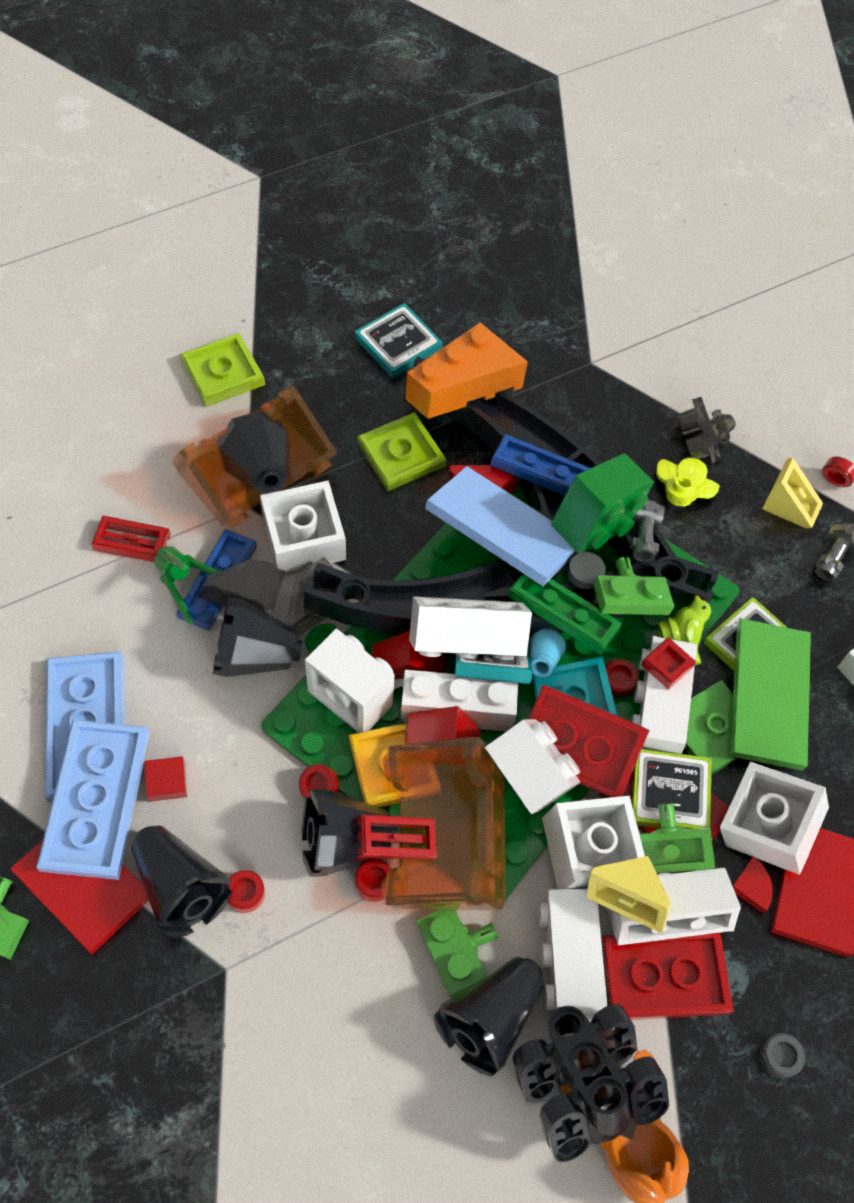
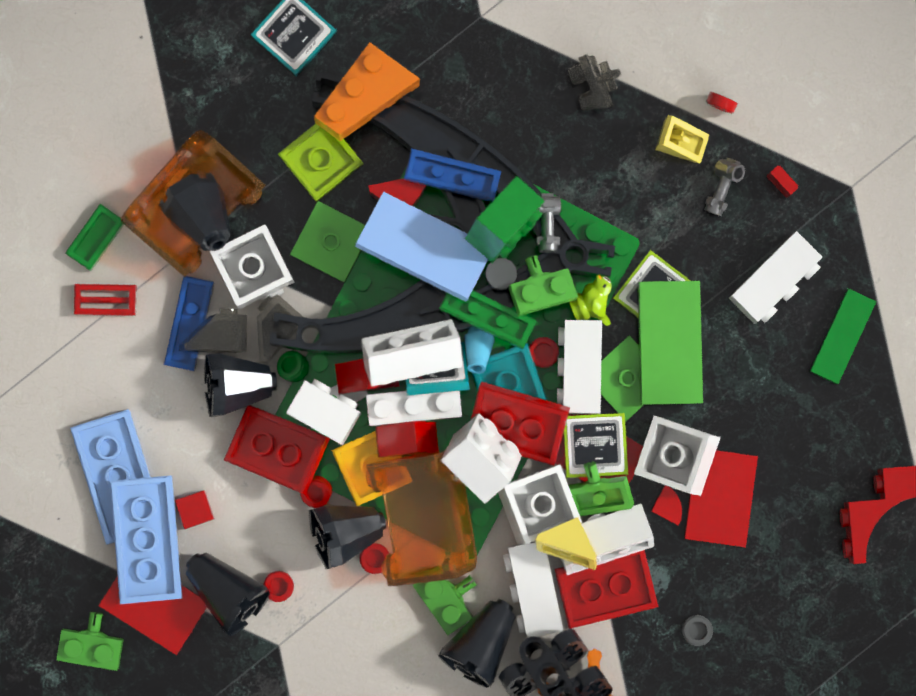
camera: 10 degrees left, 25 degrees up
(139, 479) = (95, 237): none -> green tile
(176, 567) = (152, 324): green plant -> none
(222, 369) = (136, 102): lime tile -> none
(283, 722) = (276, 449): none -> red tile
(365, 837) = (363, 539): red tile -> none
(395, 528) = (329, 242): none -> bright green plate
(668, 663) = (579, 345): red tile -> none
(685, 481) = (582, 133): neon yellow plate -> none

